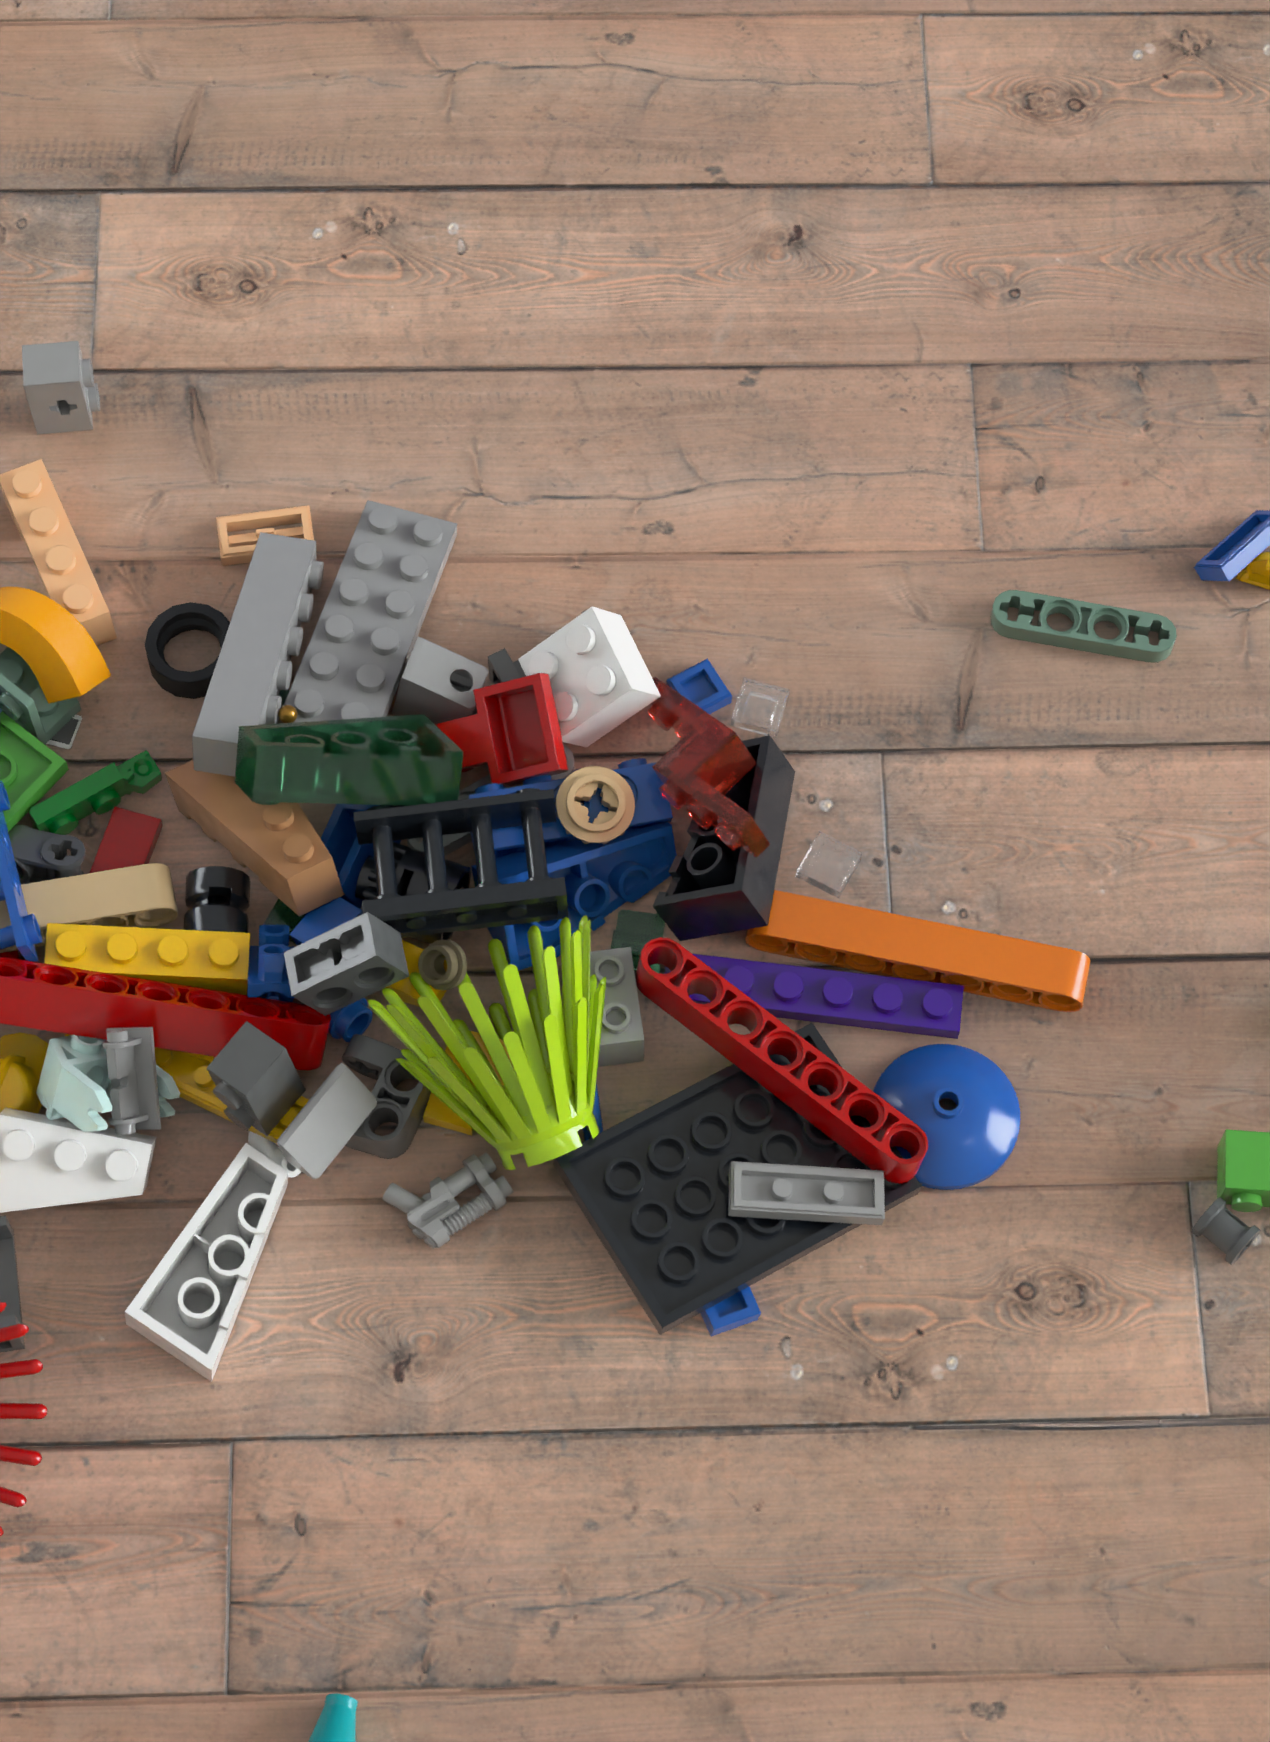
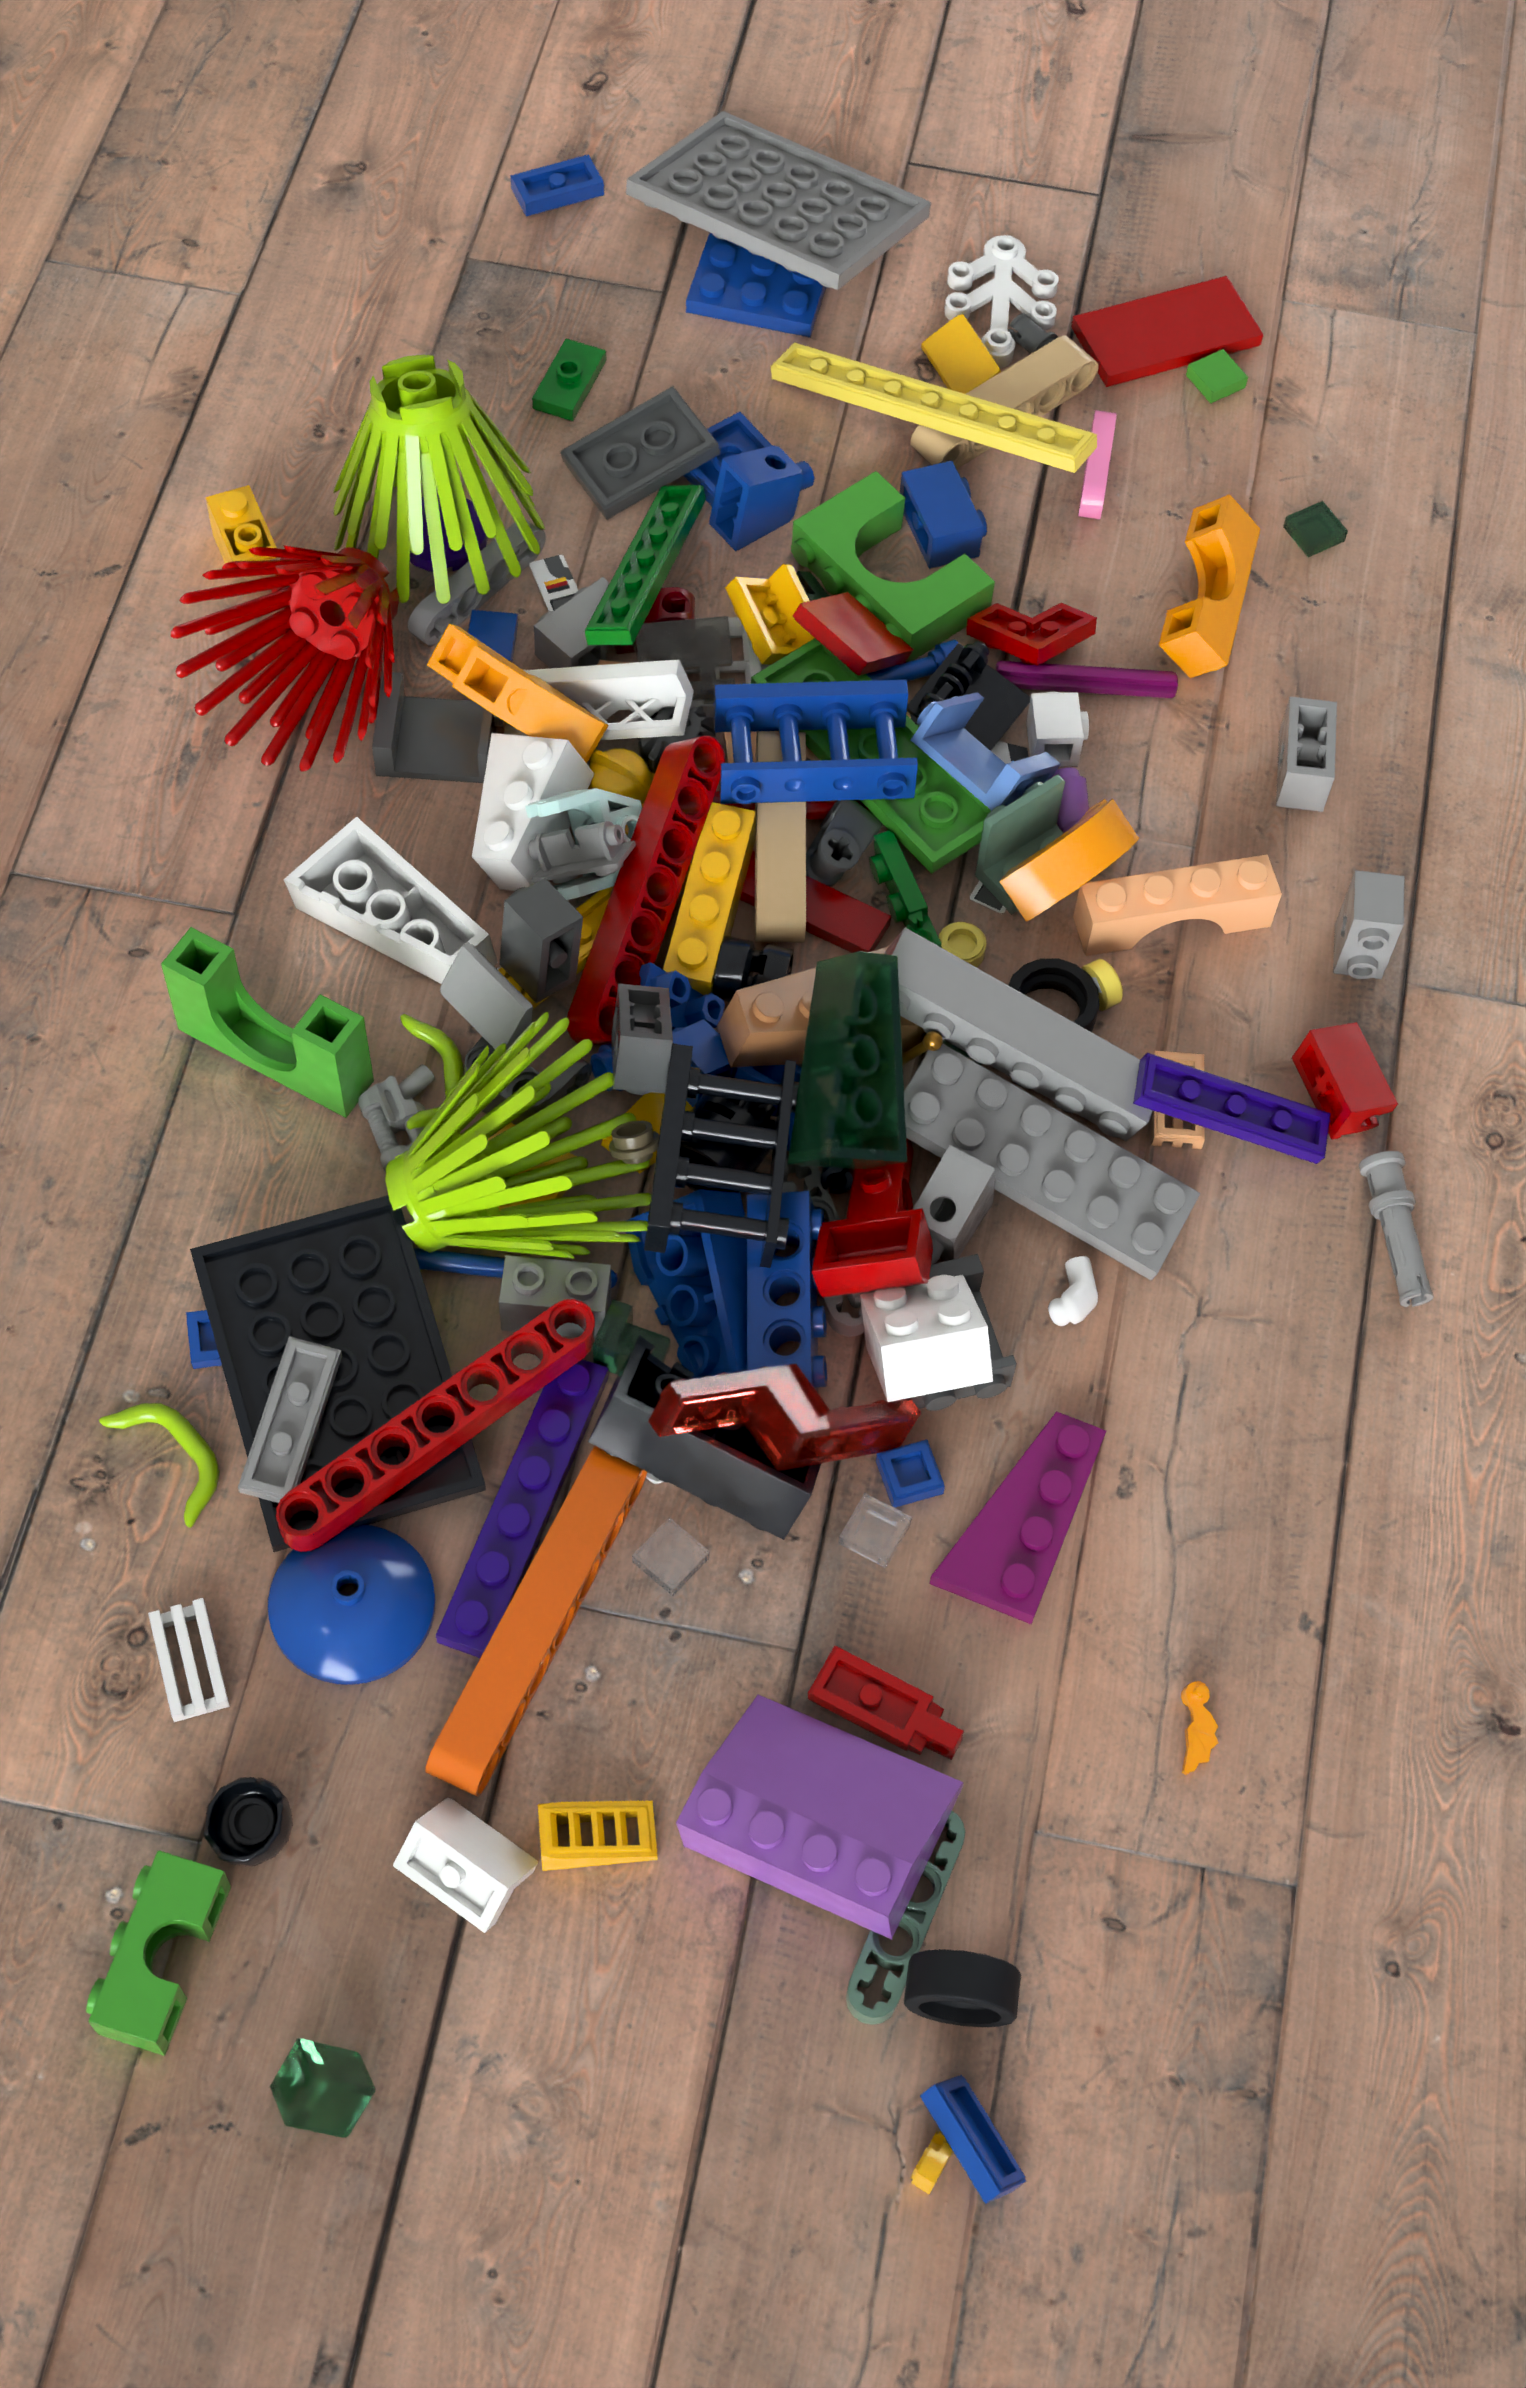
camera: 100 degrees right, 5 degrees down
(131, 738) = (964, 942): none -> light yellow tile
(156, 603) = (1106, 981): none -> light yellow tile
(221, 400) = (1343, 1078): none -> red hinge
(279, 481) = (1231, 1108): none -> dark purple tile
(346, 349) = (1393, 1207): none -> light grey pin
(378, 1382) = (319, 1058): none -> bright green arch
(388, 1167) = (451, 1057): none -> lime animal
(491, 581) = (1079, 1297): none -> white arm
(615, 796) = (760, 1285): tan gear -> none
(736, 596) = (1021, 1529): none -> magenta wing
(830, 1300) = (187, 1437): none -> lime animal
(868, 441) = (1201, 1731): none -> light orange piece
(917, 672) = (883, 1705): none -> red hinge
(1026, 693) = (819, 1814): none -> medium lavender slope
(1073, 1213) = (178, 1617): none -> white tile
(1088, 901) = (576, 1855): none -> yellow slope
(1141, 562) = (962, 1988): none -> black tyre
(1146, 957) = (464, 1862): none -> white panel
(1172, 1131) = (248, 1821): none -> black hair
(1225, 1230) = (121, 1852): dark grey bush -> none

